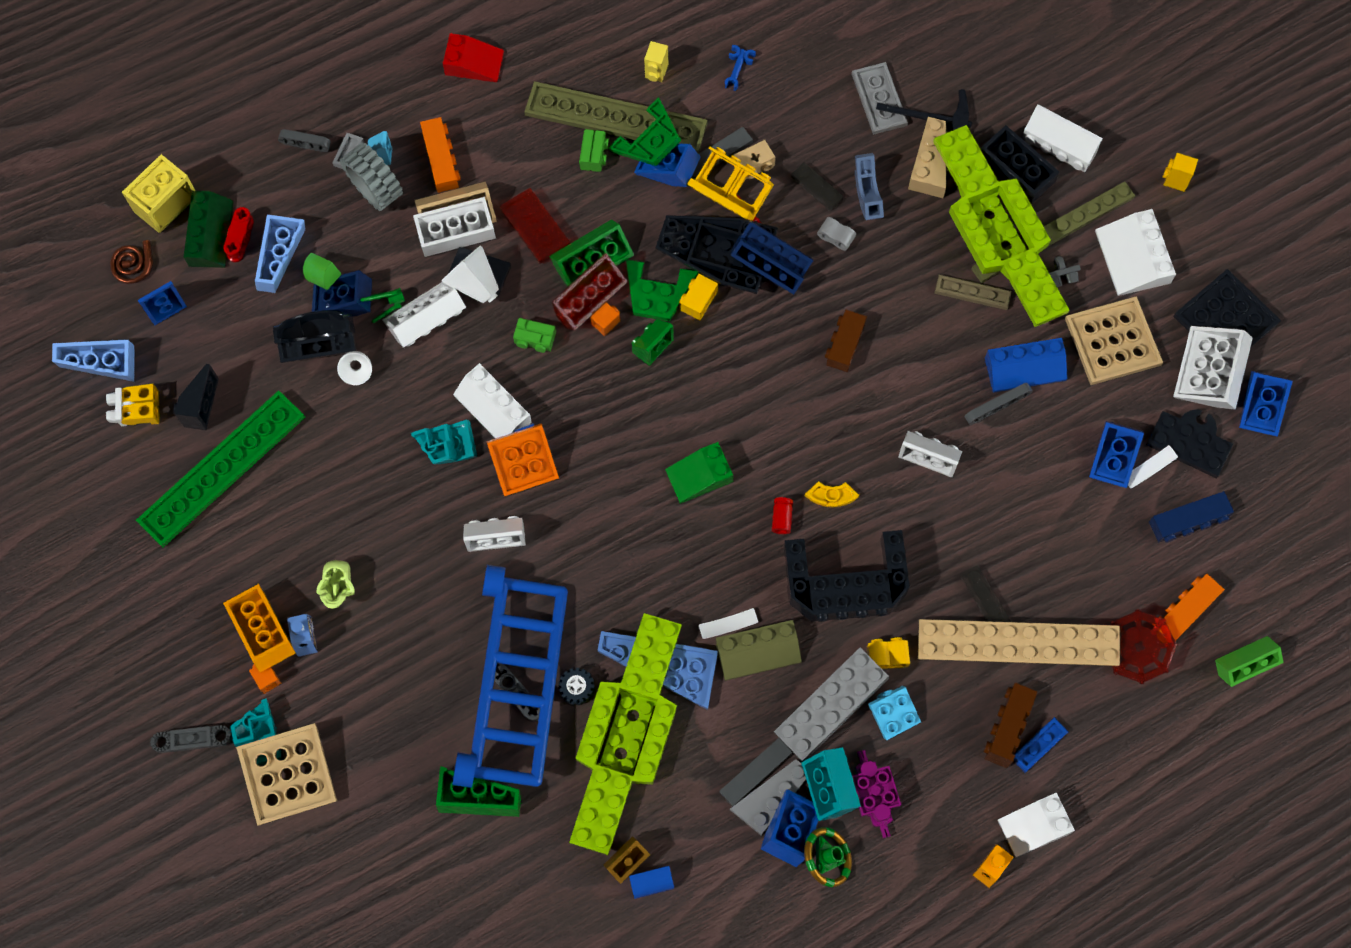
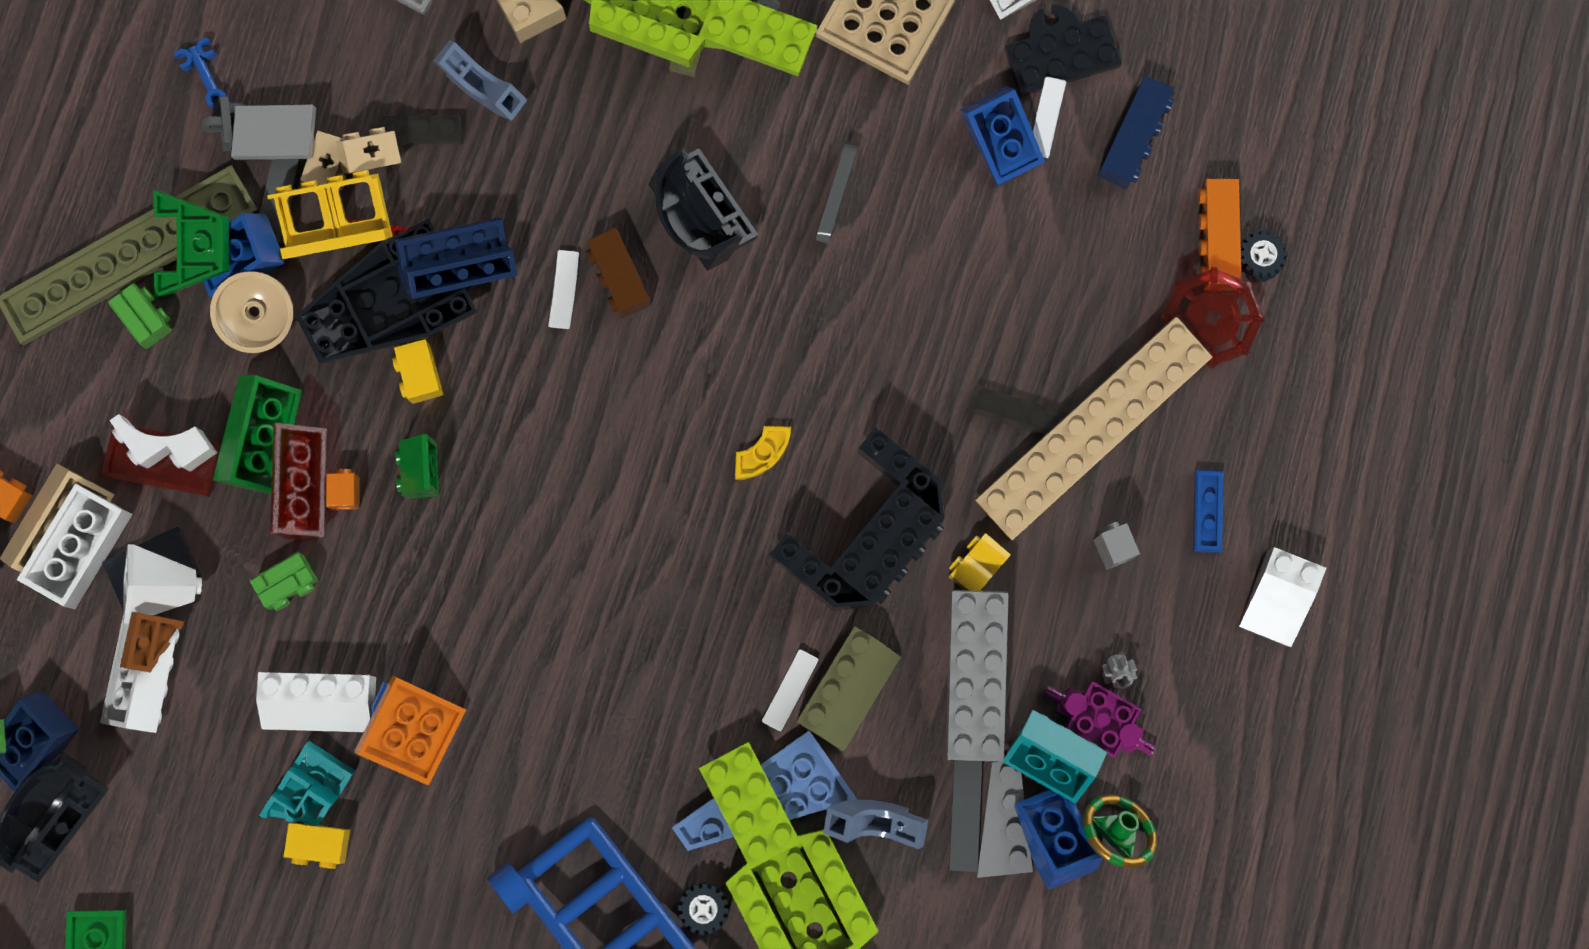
camera: 45 degrees left, 10 degrees up
(353, 376) = (133, 814): white piece -> none
(394, 297) = (87, 686): green plant -> none
(424, 471) = (316, 843): none -> yellow brick
(444, 298) = (147, 640): none -> dark orange wing
(494, 534) = (458, 836): white slope -> none
(551, 229) = (187, 448): none -> white arch
(640, 185) = (232, 314): none -> tan dish
(654, 298) = (371, 417): green wing -> none
(656, 61) = (110, 151): light yellow brick -> none
(700, 473) = (607, 562): green slope -> none
(706, 725) = (875, 818): none -> sand blue arch
(721, 96) = (222, 122): none -> dark grey hips
(743, 121) = (273, 132): none -> light grey tile
(782, 515) = (735, 524): red piece -> none
(788, 177) = (383, 152): none -> tan brick
(811, 324) = (564, 289): none -> white sticker
(836, 233) = (494, 164): light grey axle -> none
(894, 712) = (1041, 619): medium azure plate -> none
(909, 778) = (1119, 671): none -> light grey gear
(918, 352) = (702, 212): none -> black piece
(930, 453) = (820, 312): white slope -> none
(970, 711) = (1116, 545): none -> light grey brick
(973, 292) = (696, 95): dark tan tile -> none
(993, 866) = (1281, 677): light orange torso -> none
(1010, 725) = (1164, 520): reddish brown wedge -> none
(1026, 363) = (826, 124): blue slope -> none
(1204, 637) = (1267, 248): none -> black wheel
(1249, 661) = (1327, 230): bright green brick -> none

